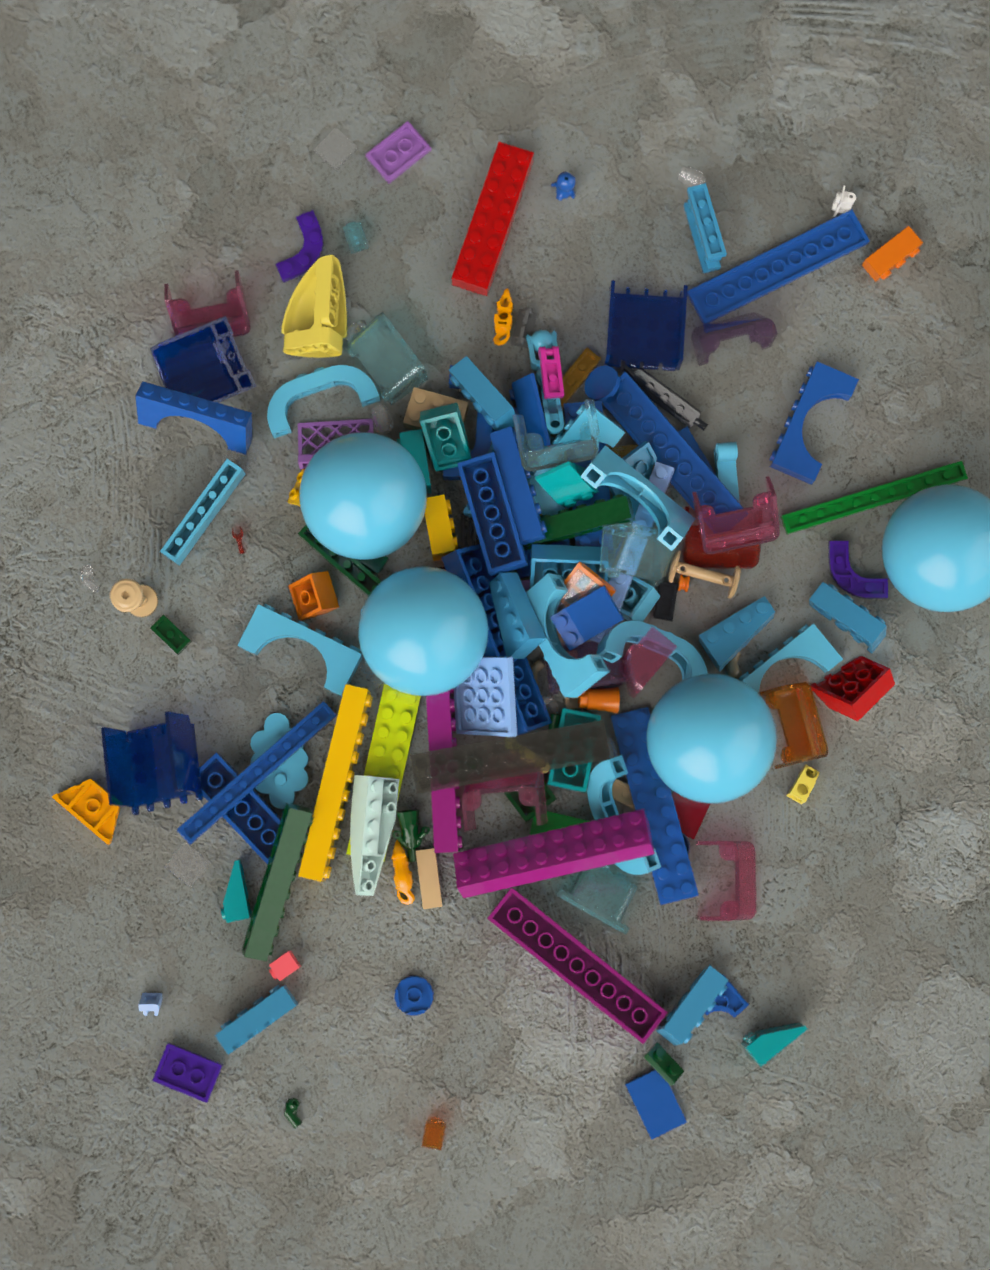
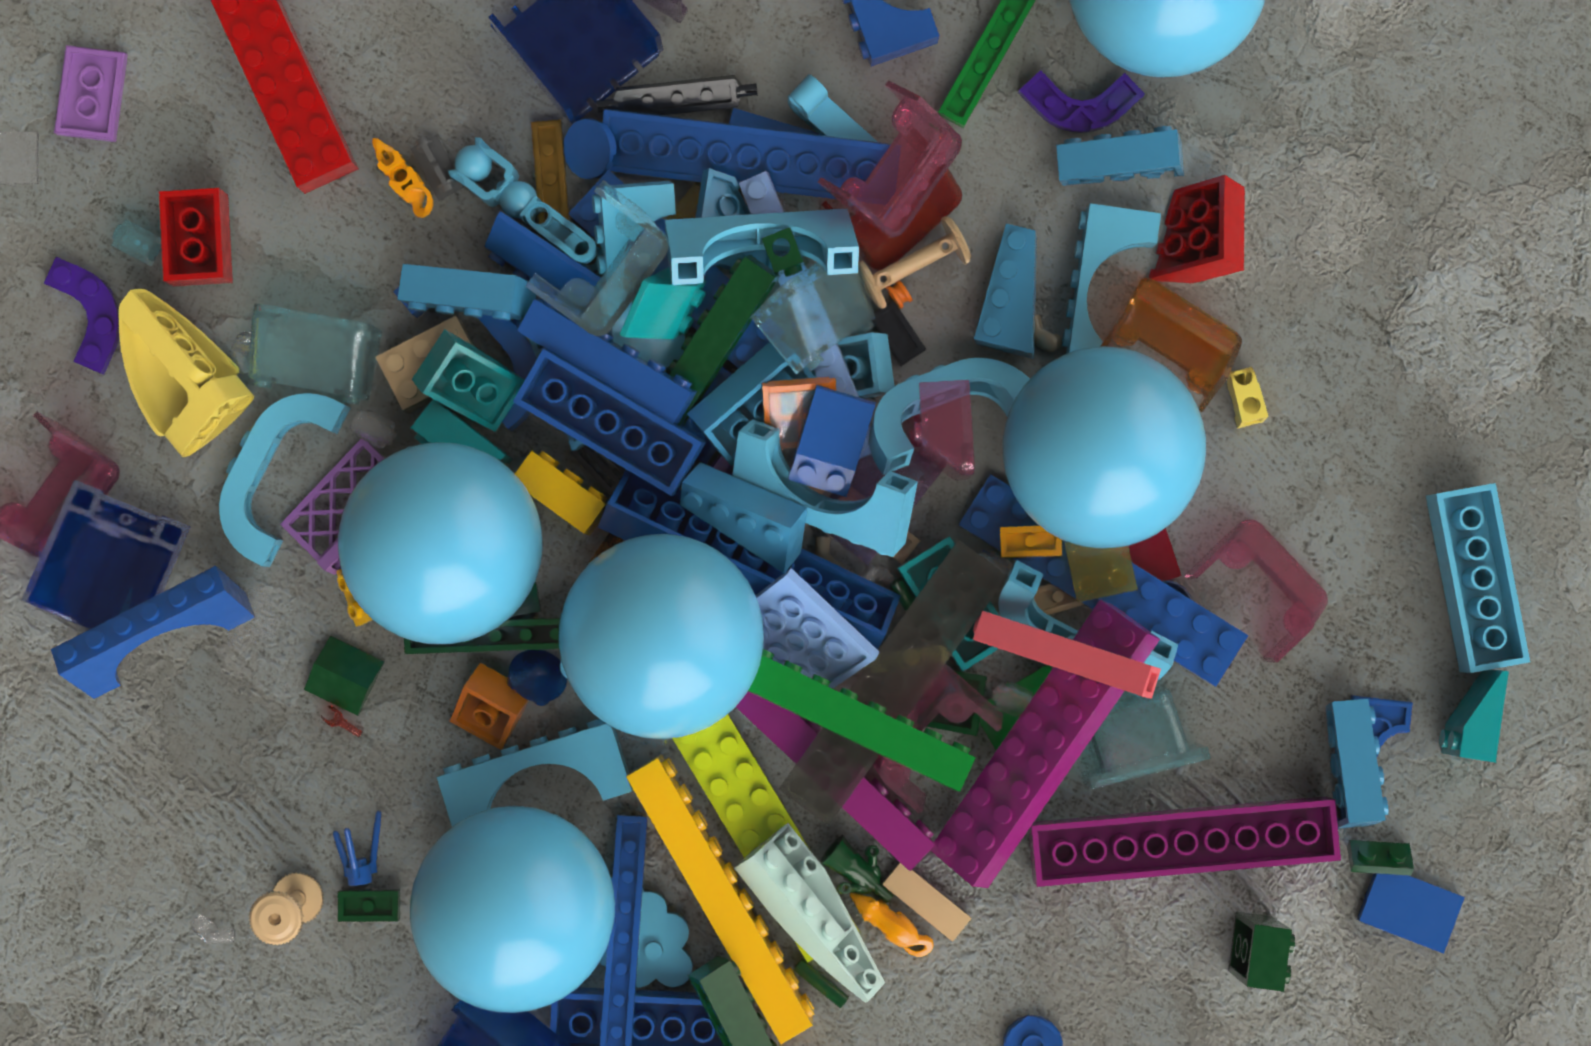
camera: 45 degrees left, 5 degrees up
(181, 613) = (357, 869): none -> blue plant
(203, 512) = (270, 731): medium azure brick -> none
(236, 693) = (512, 909): none -> medium azure piece
(260, 519) = (343, 675): none -> dark green slope
(343, 870) = (821, 983): none -> dark green piece
(347, 601) = (536, 676): none -> clear blue dish
(384, 258) = (195, 237): none -> red brick
(476, 759) = (861, 722): none -> green brick
(551, 372) = (520, 191): dark pink plate -> none
(558, 818) = (1011, 698): none -> clear brick
(564, 1051) = (1261, 951): none -> dark green brick
(600, 699) = (932, 516): orange plant -> none
(603, 818) = (1066, 654): none -> coral brick
(635, 753) = (1028, 542): none -> light orange plate
(646, 518) = (790, 263): none -> dark green bracket
(656, 798) = (1100, 571): none -> clear yellow plate
(835, 973) = (1477, 578): none -> medium azure brick

